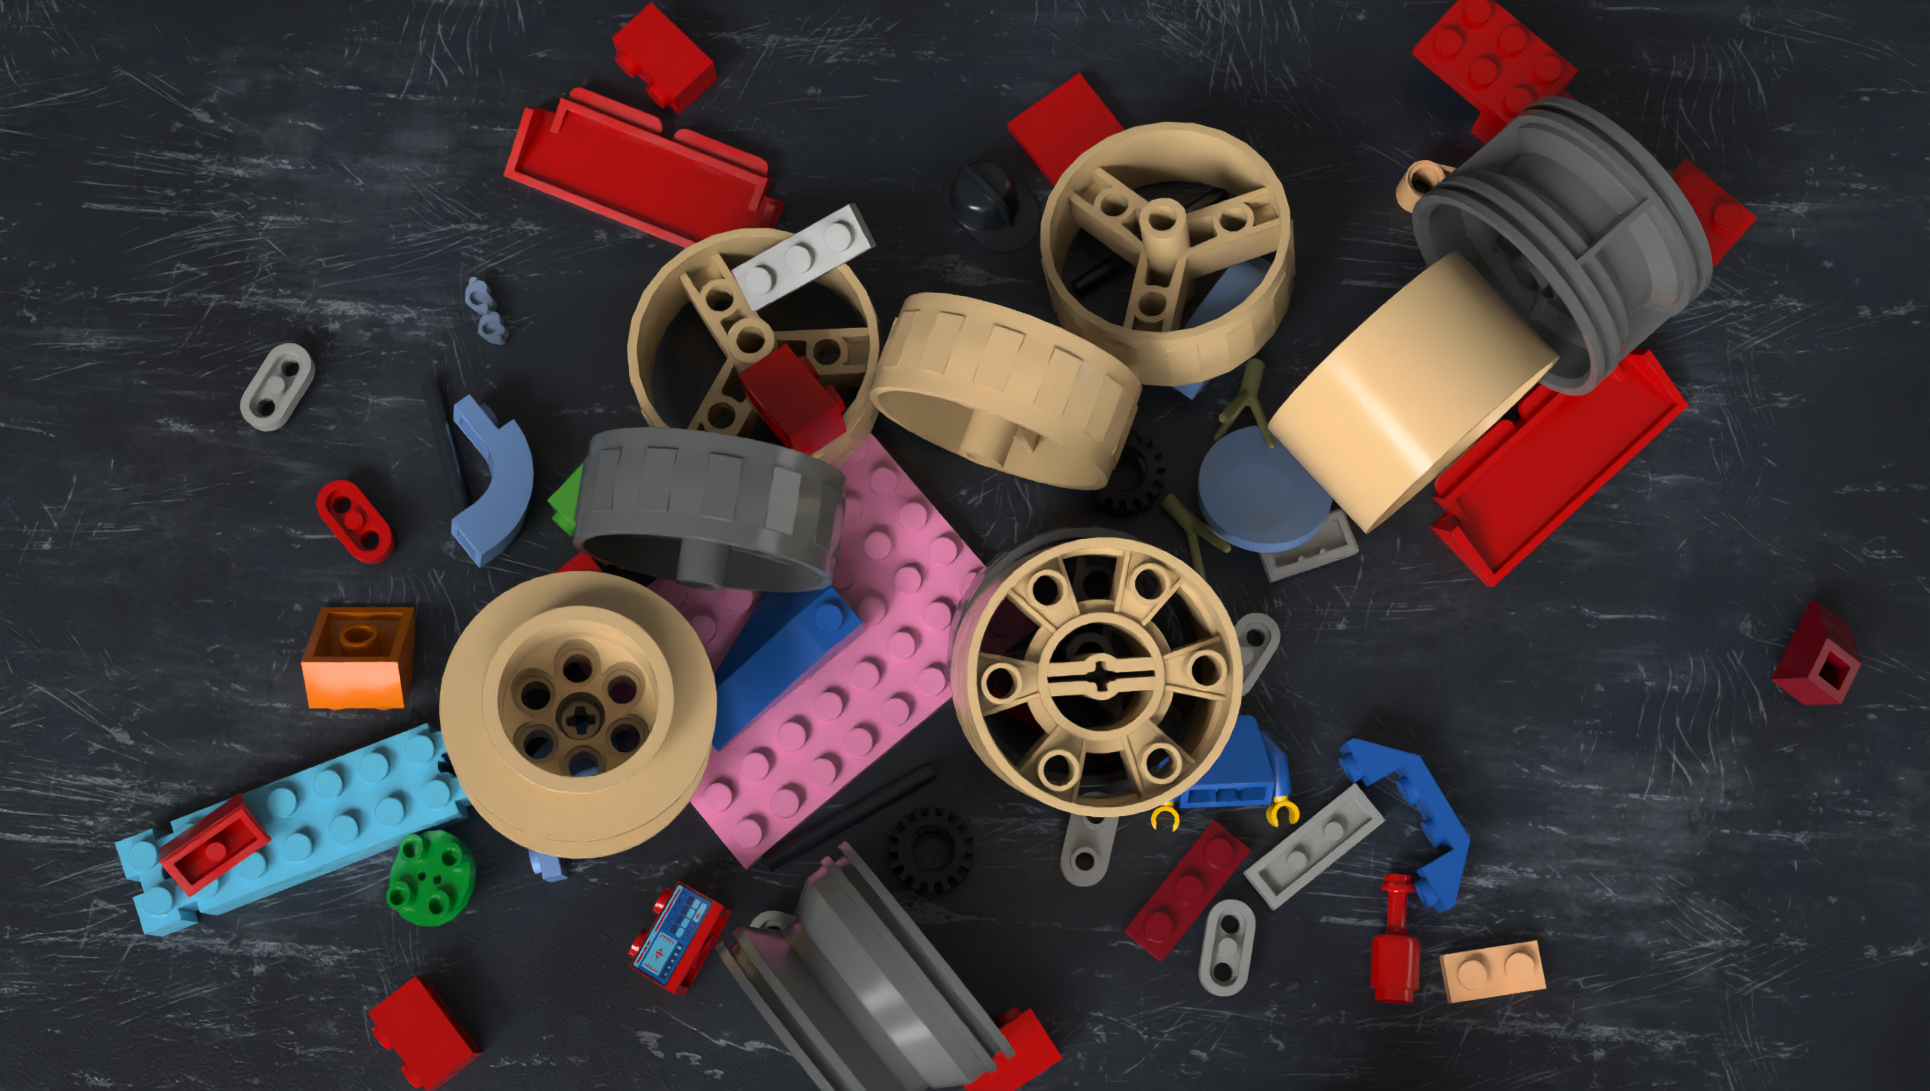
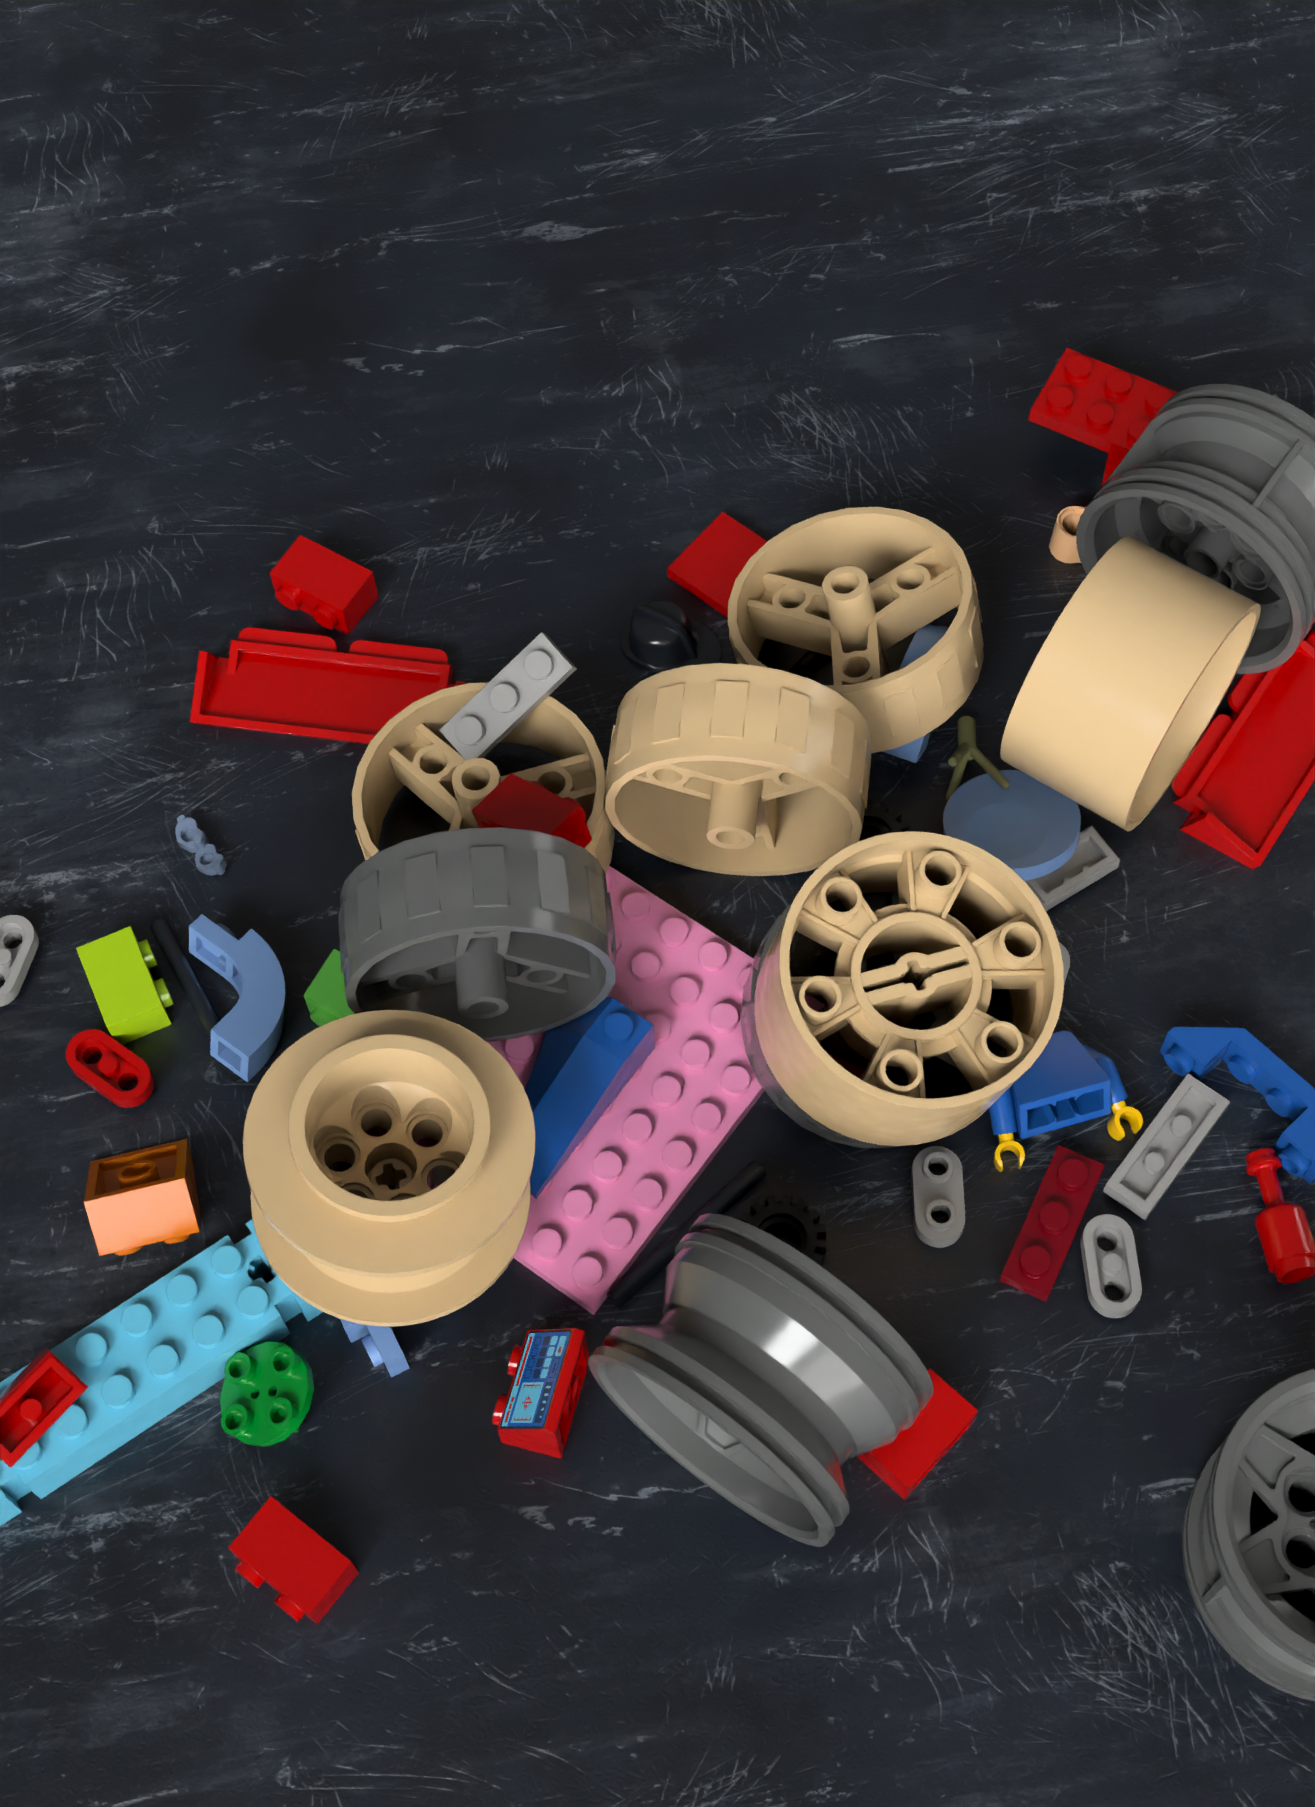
camera: 10 degrees left, 15 degrees down
(386, 442) = (124, 985): none -> lime brick

